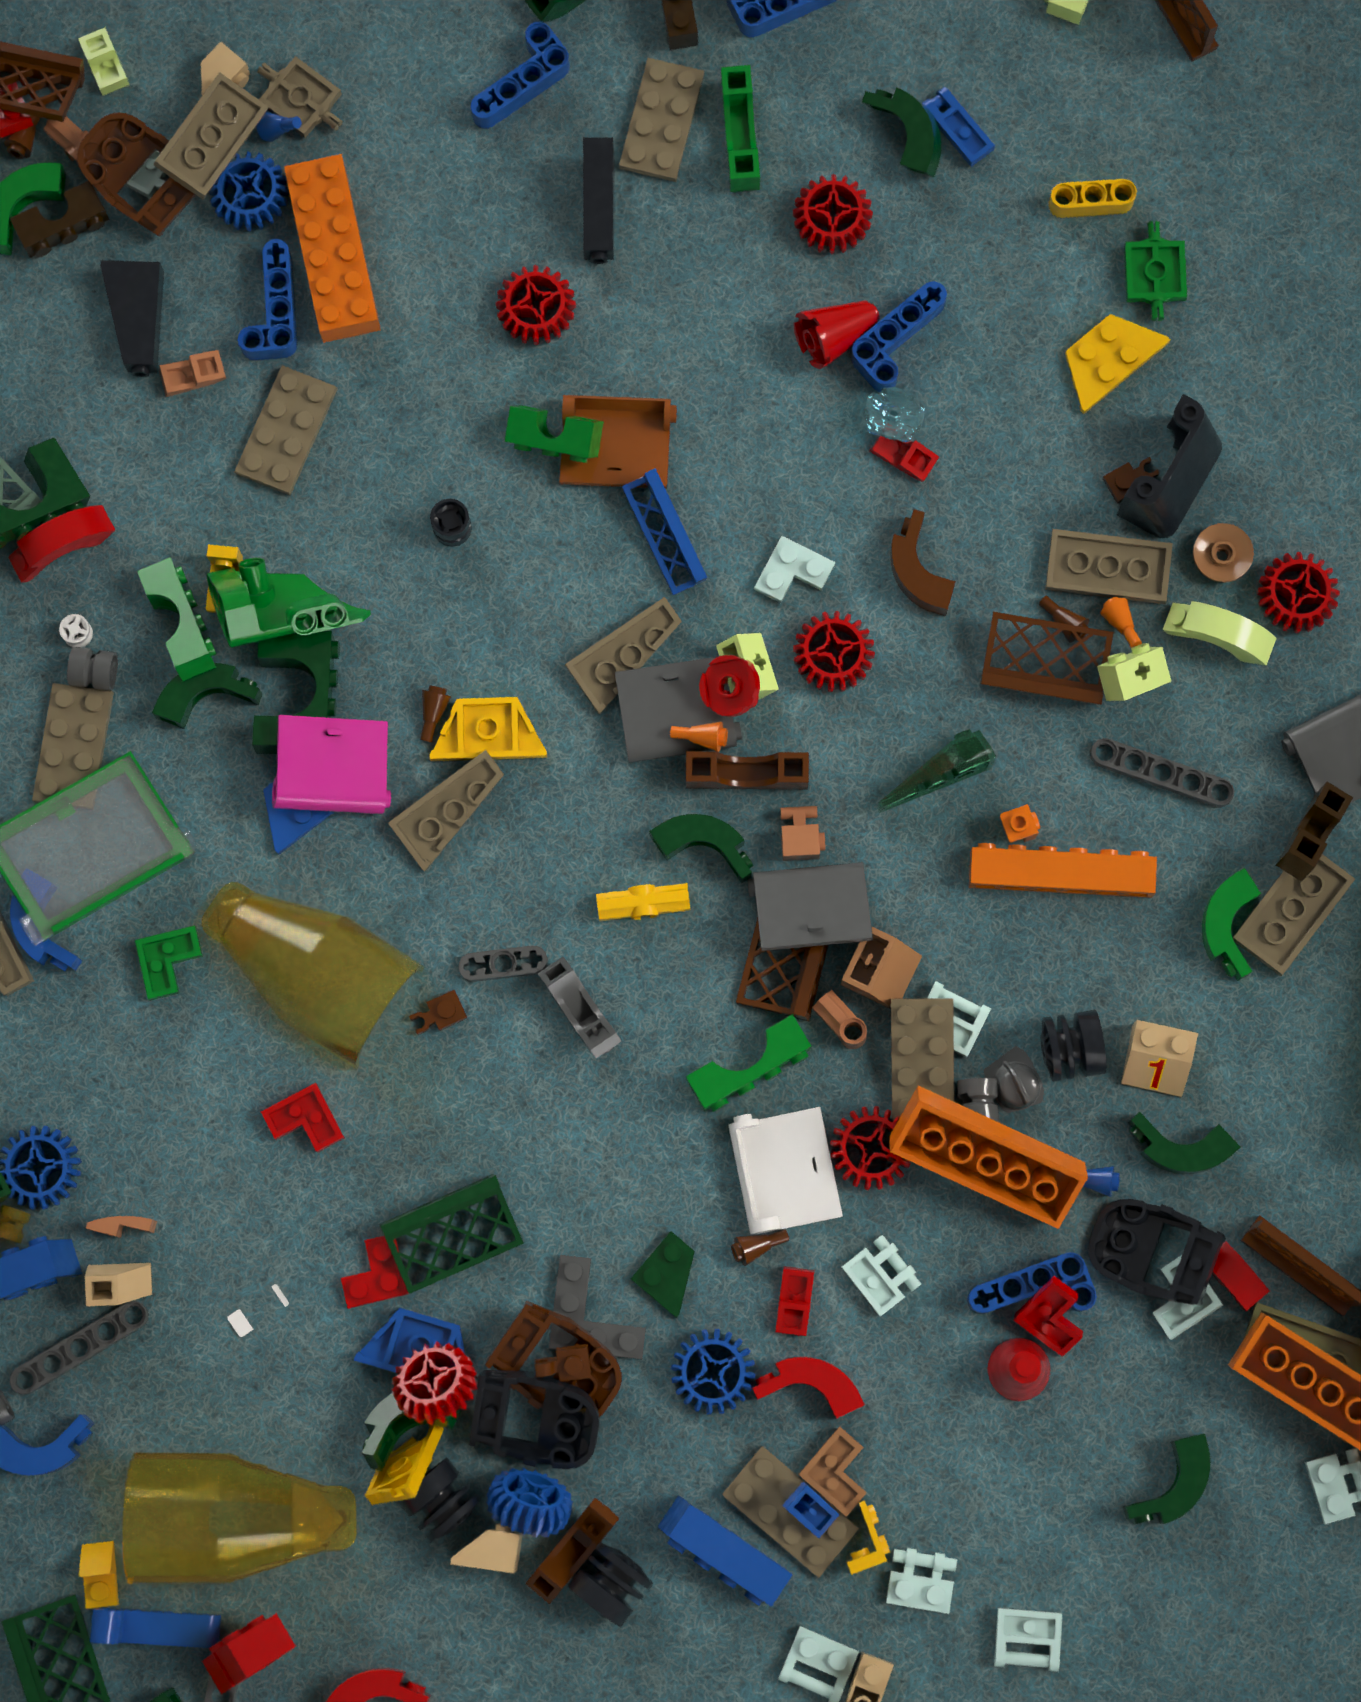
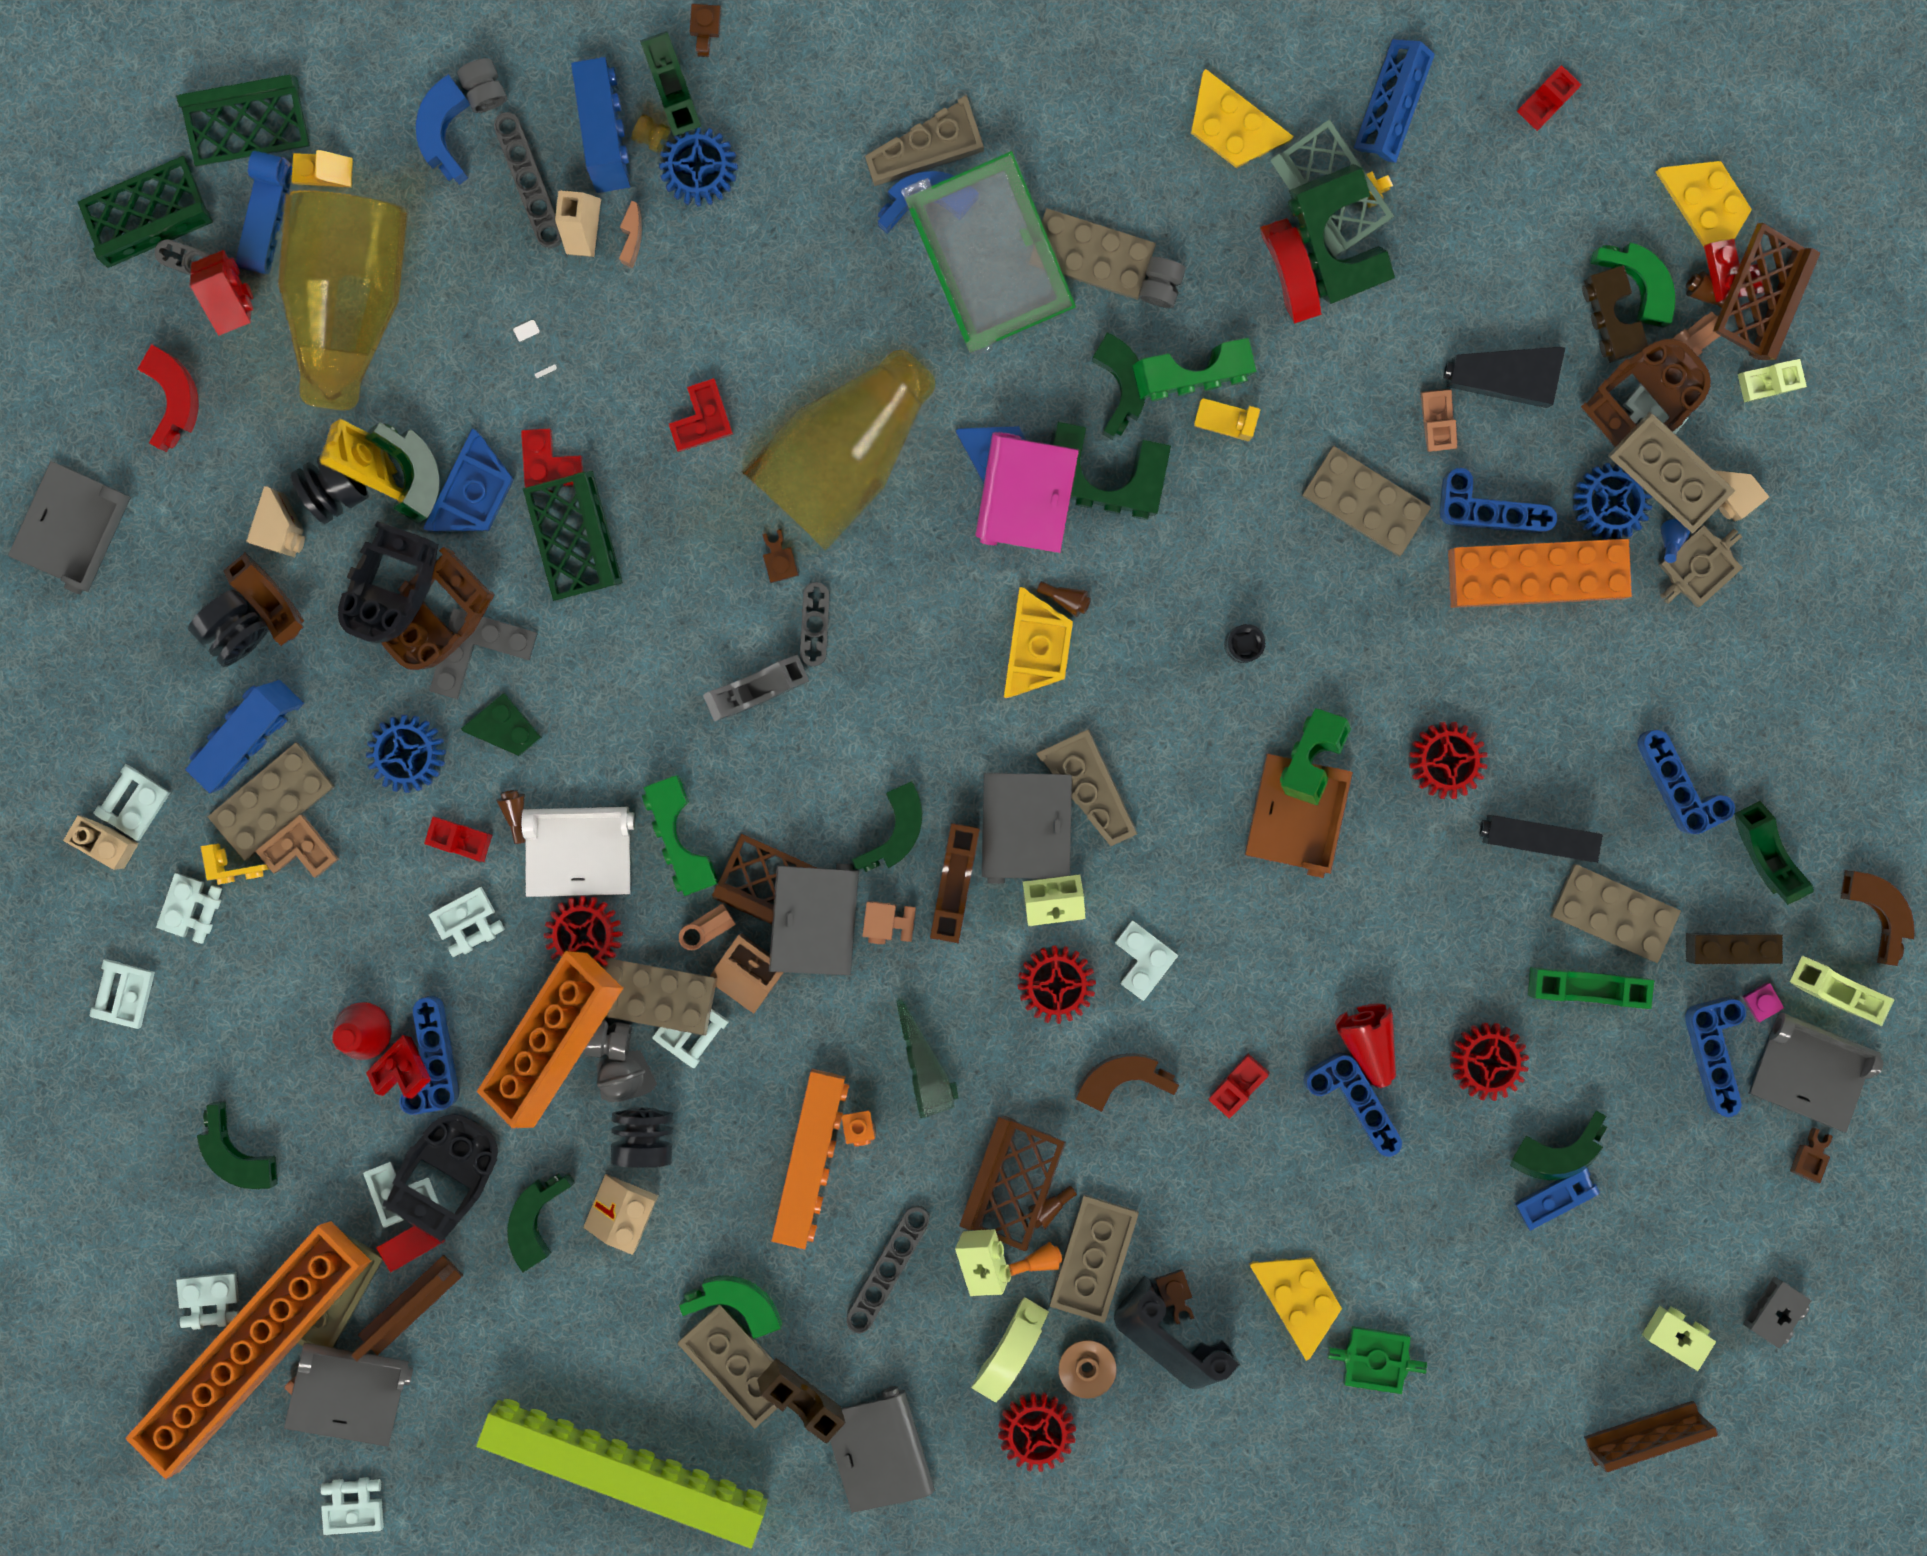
camera: 95 degrees right, 10 degrees up
(70, 627) = (1205, 267): white wheel -> none
(159, 954) = (878, 305): green plate -> none
(272, 605) = (1192, 465): green panel -> none
(440, 1378) = (432, 474): red gear -> none
(442, 812) = (964, 587): dark tan wing -> none
(529, 1502) = (304, 563): blue gear -> none
(570, 1363) = (429, 624): reddish brown plate -> none
(643, 901) = (849, 764): yellow piece -> none
(674, 526) = (1203, 855): blue fence -> none
(706, 735) = (991, 852): orange cone -> none
(745, 692) = (1038, 896): red plate -> none
(810, 1509) = (265, 818): blue slope -> none
(821, 1375) = (387, 845): red arch -> none
(899, 427) = (1263, 1080): clear light blue plate -> none
(1102, 189) = (1465, 1327): yellow beam -> none
(1103, 1180) = (517, 1141): blue cone -> none

